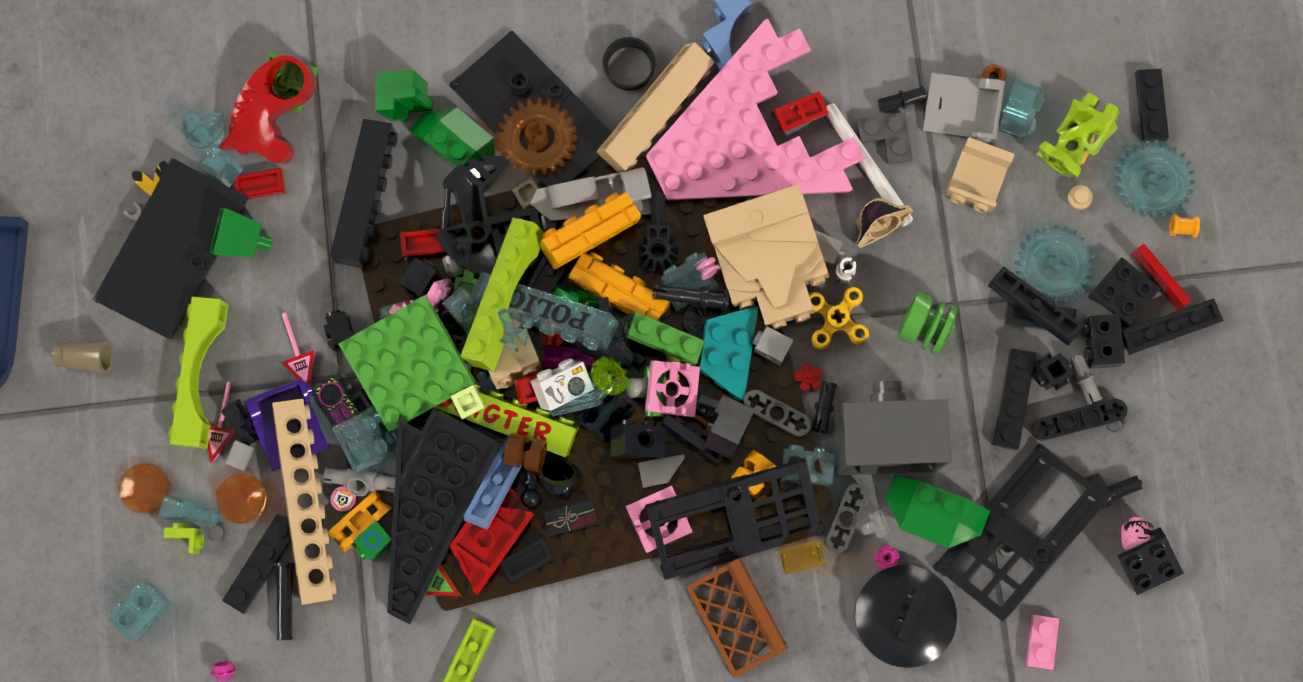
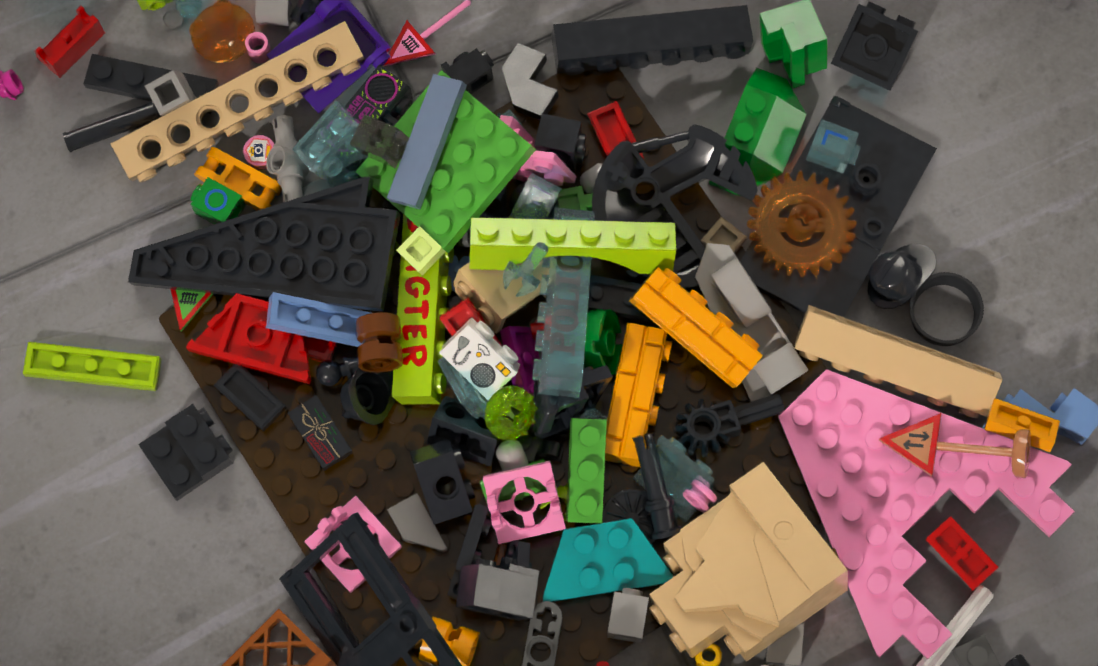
camera: 75 degrees right, 5 degrees down
(206, 614) = (71, 43): none -> red hinge
(256, 475) = (256, 39): none -> bright pink hinge
(280, 547) = (170, 92): none -> light grey brick
(369, 408) = (379, 141): none -> clear smoke brick
(372, 294) = (526, 94): none -> tile
(390, 370) = (426, 141): none -> sand blue tile
(424, 43) = (875, 45): none -> black plate
(489, 96) = (834, 147): none -> clear light blue brick
(550, 618) = (187, 451): none -> black plate
(594, 85) = (899, 275): none -> black piece
(721, 110) = (920, 442): none -> nougat piece
(730, 40) = (1007, 419): none -> light orange plate

